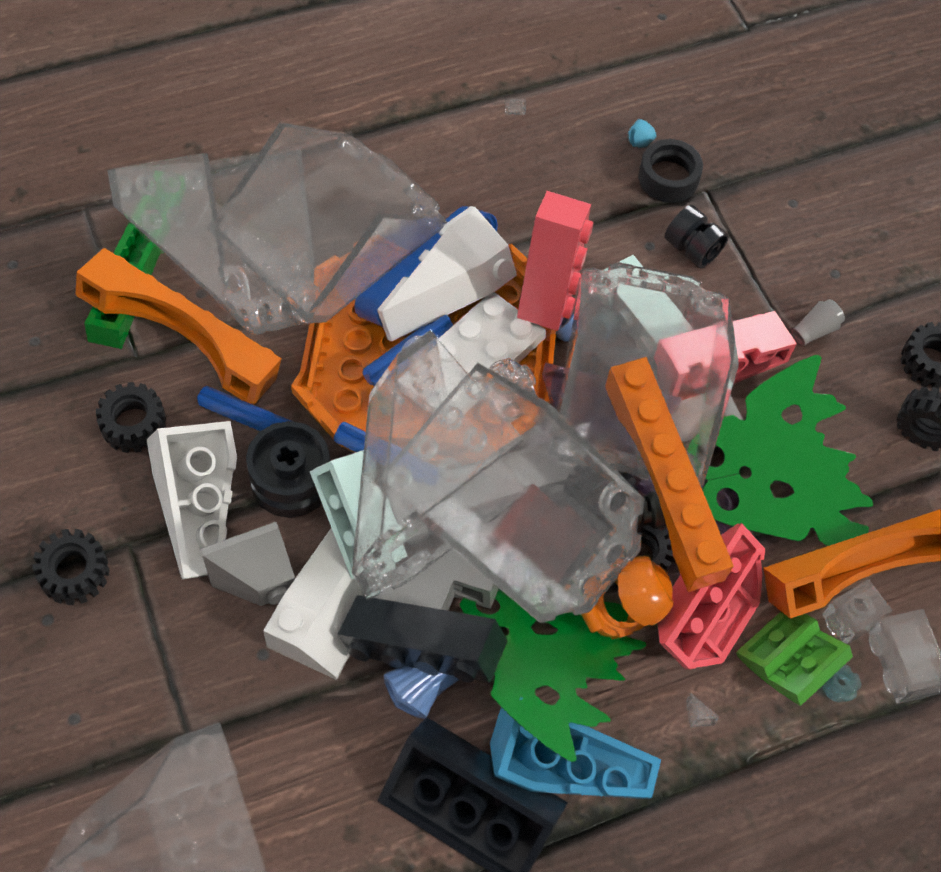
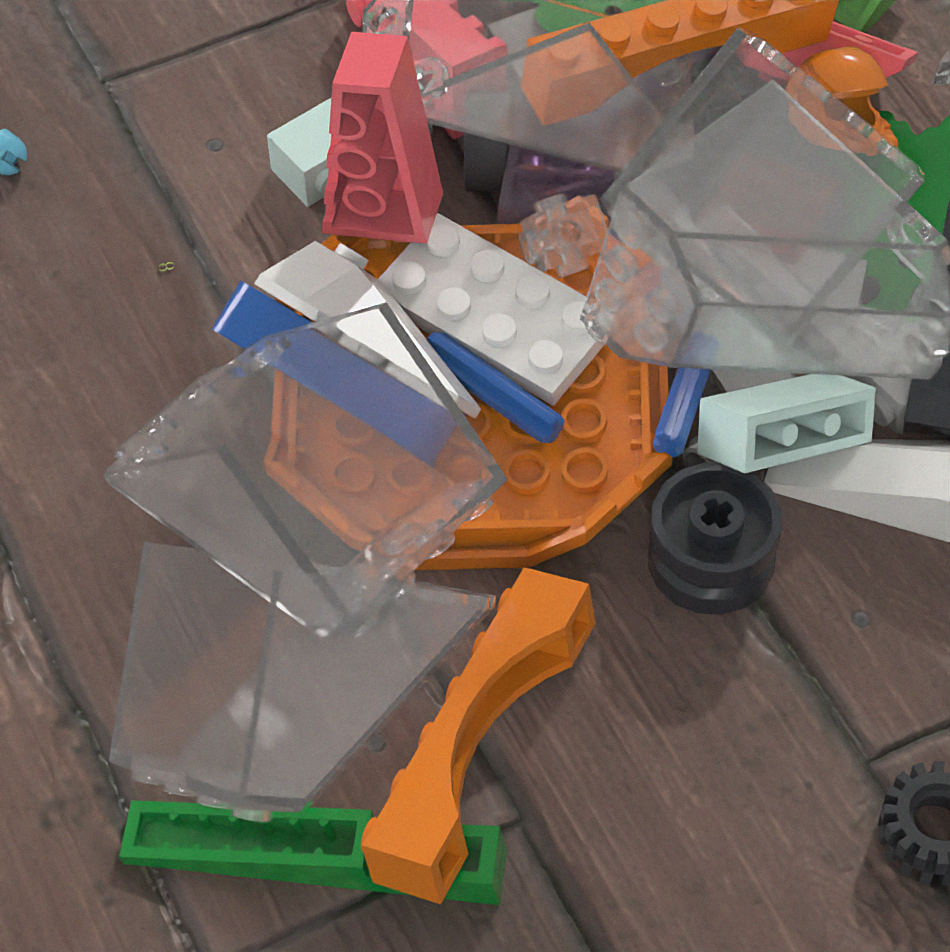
camera: 90 degrees left, 5 degrees down
(127, 399) = (652, 756): black tyre -> none
(194, 487) = (751, 678): white wedge -> none
(237, 409) = (611, 627): blue axle -> none
(251, 565) = (885, 555): light grey slope -> none
(676, 152) = (76, 84): black tyre -> none
(692, 233) = (213, 72): black wheel -> none

